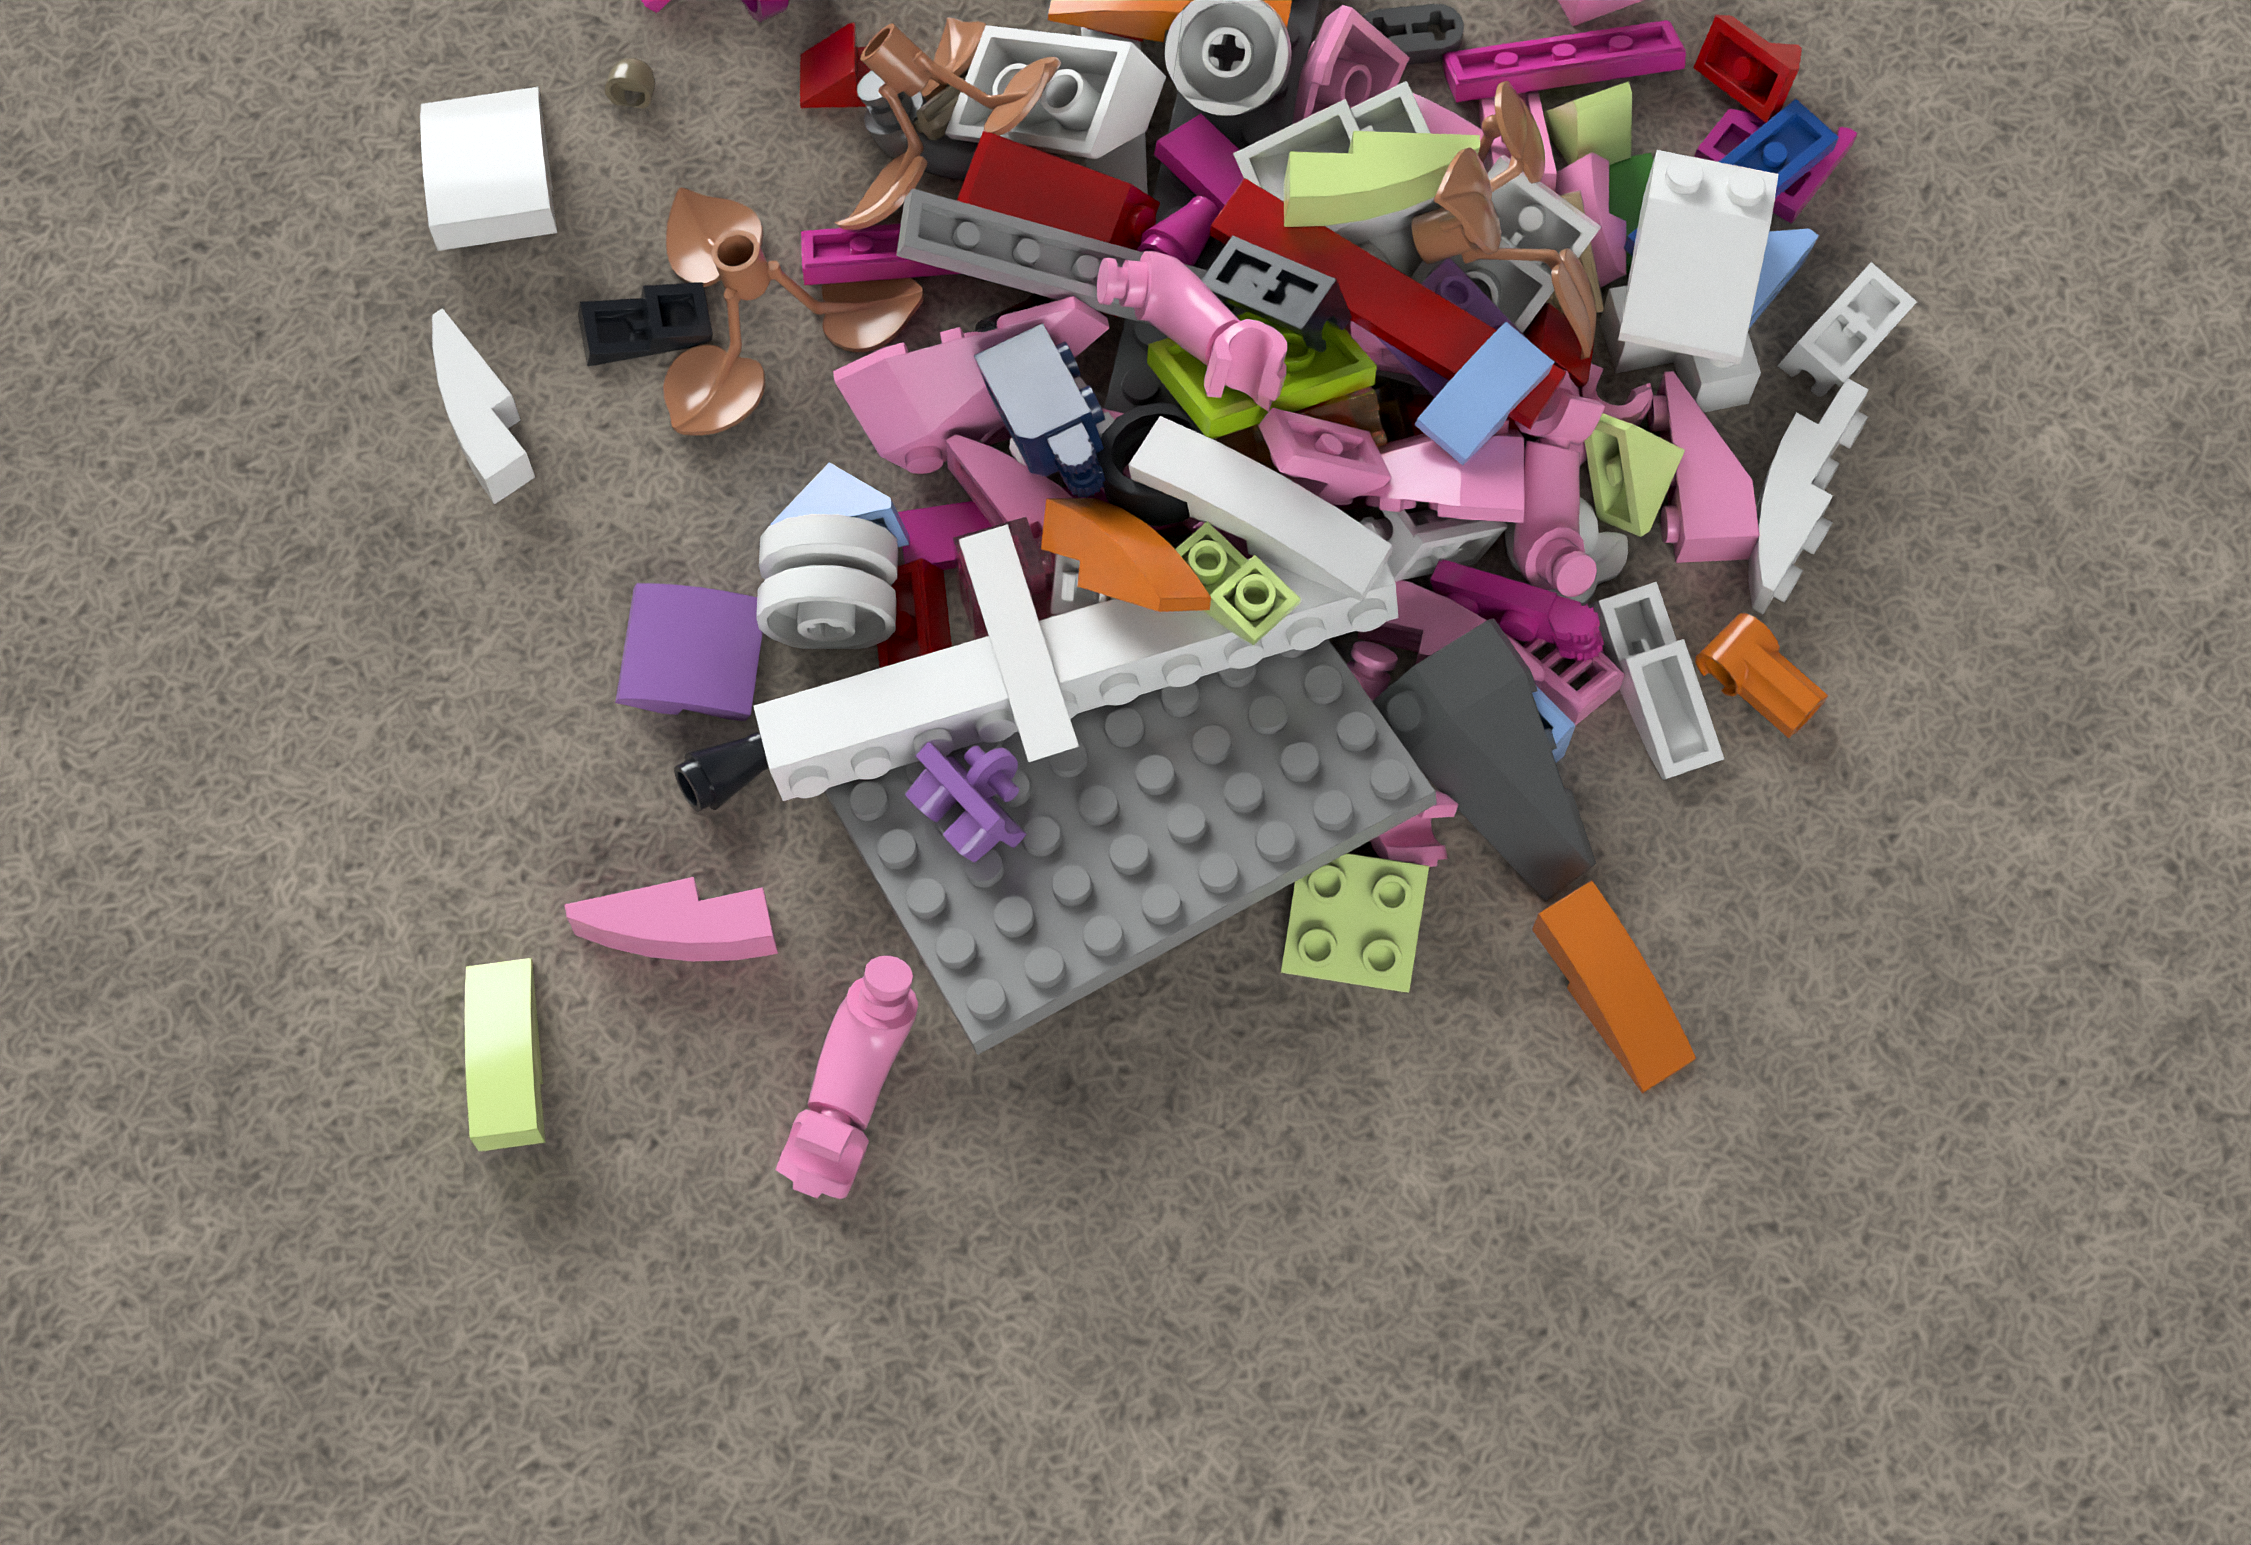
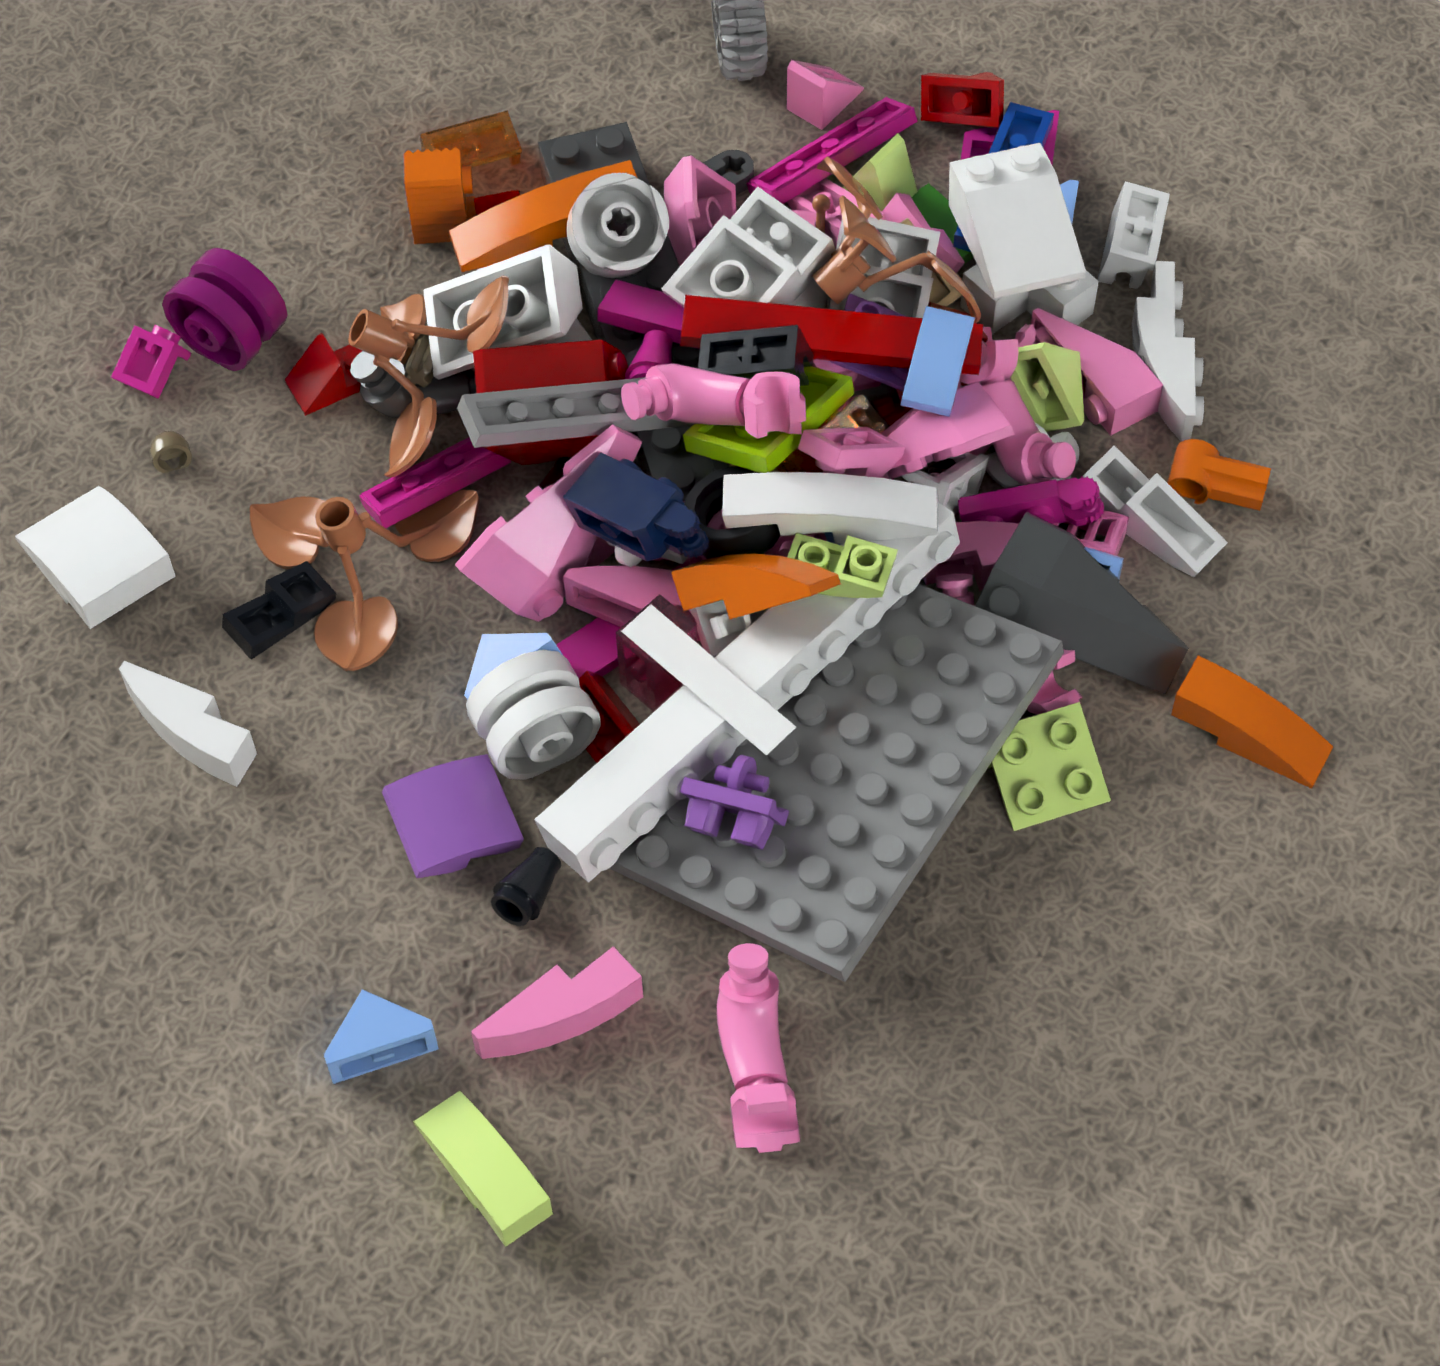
camera: 25 degrees left, 10 degrees down
(471, 857) = (377, 1036): none -> light blue slope
(1373, 179) = (777, 252): yellowish green slope -> none

